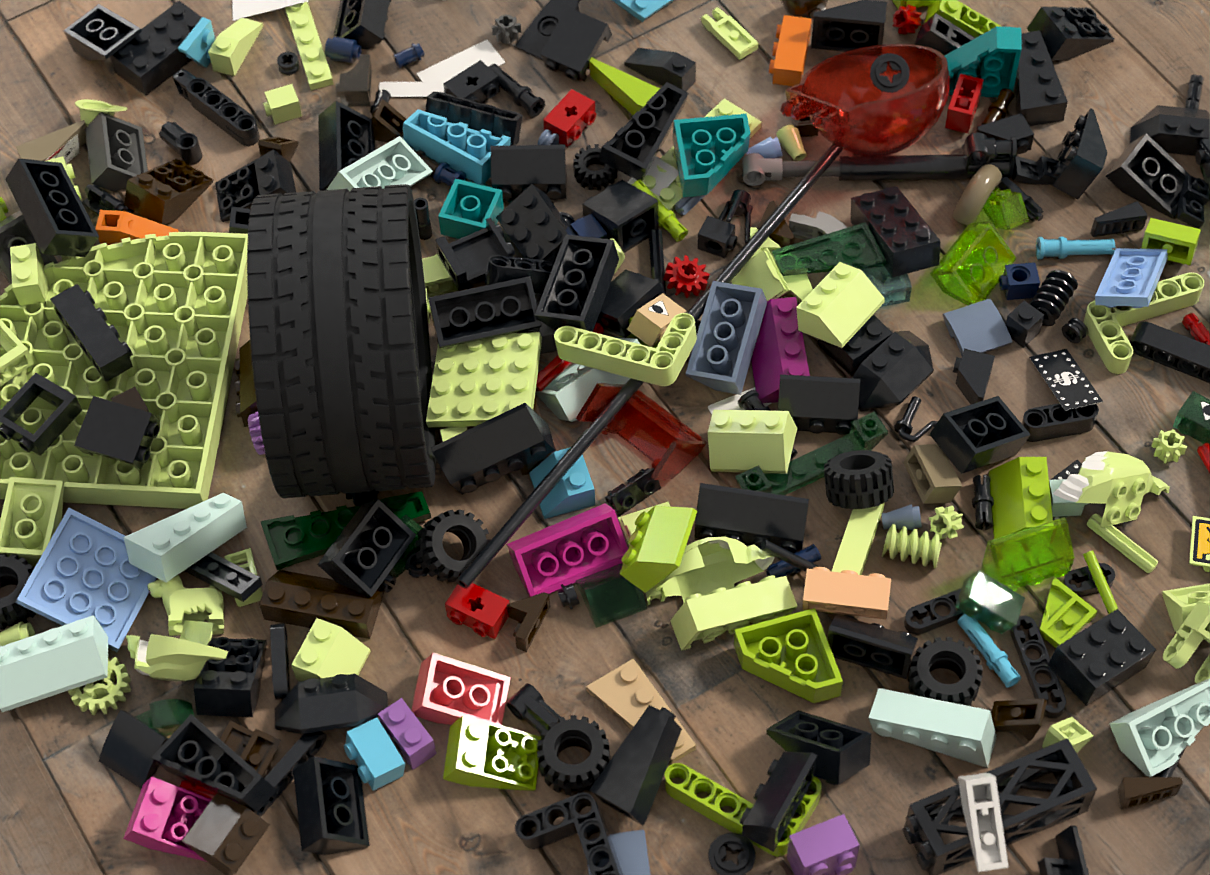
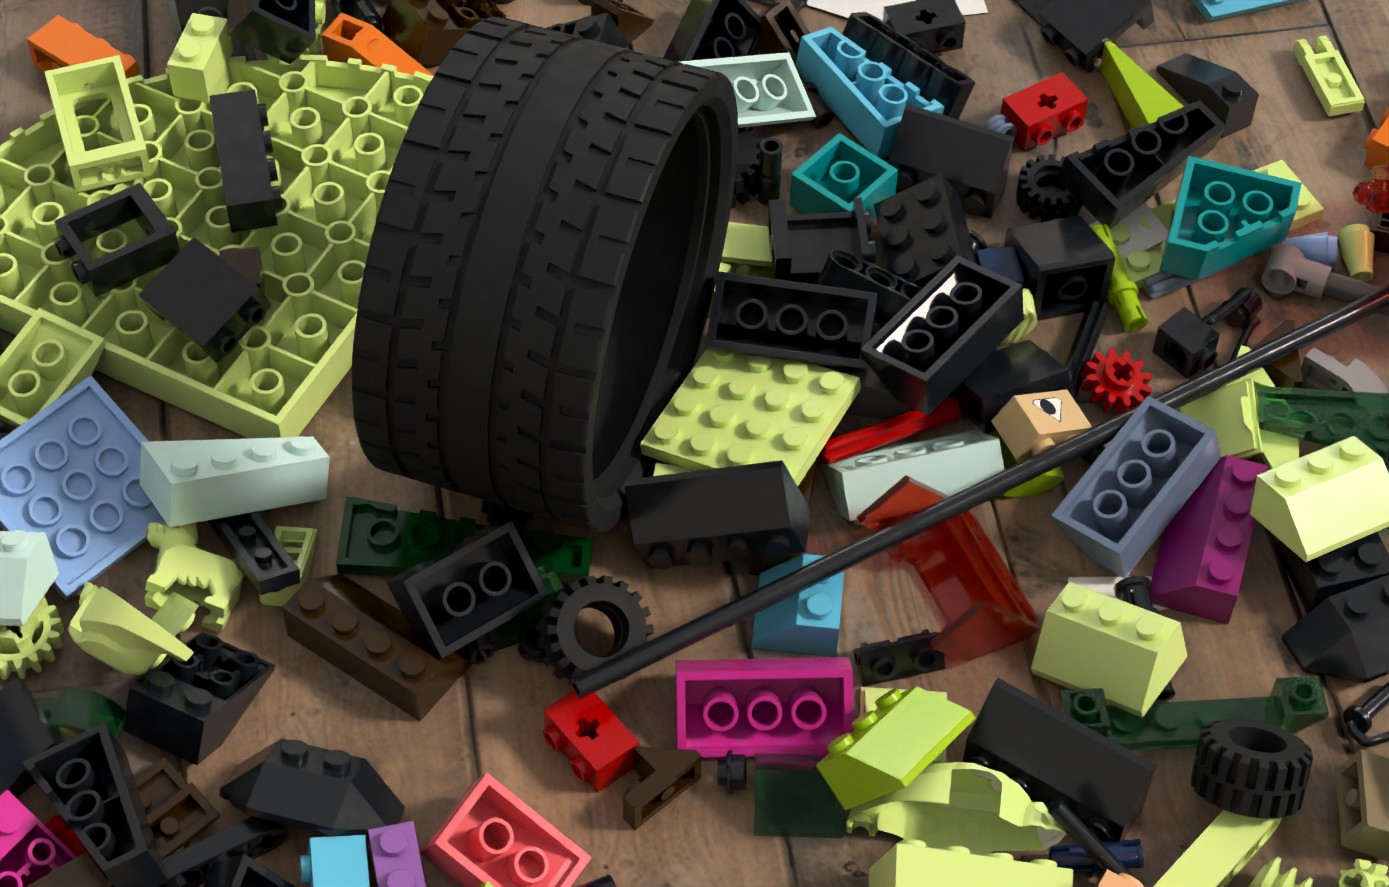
camera: 20 degrees right, 5 degrees down
(280, 660) = (276, 699): black beam -> none
(329, 652) = (348, 715): yellowish green slope -> none
(447, 175) = (832, 123): dark blue bush -> none
(521, 94) = (989, 60): black pin -> none
(630, 359) = (975, 463): yellowish green beam -> none
(820, 402) = (1239, 631): black slope -> none
(905, 516) = (1306, 854): sand blue cone -> none

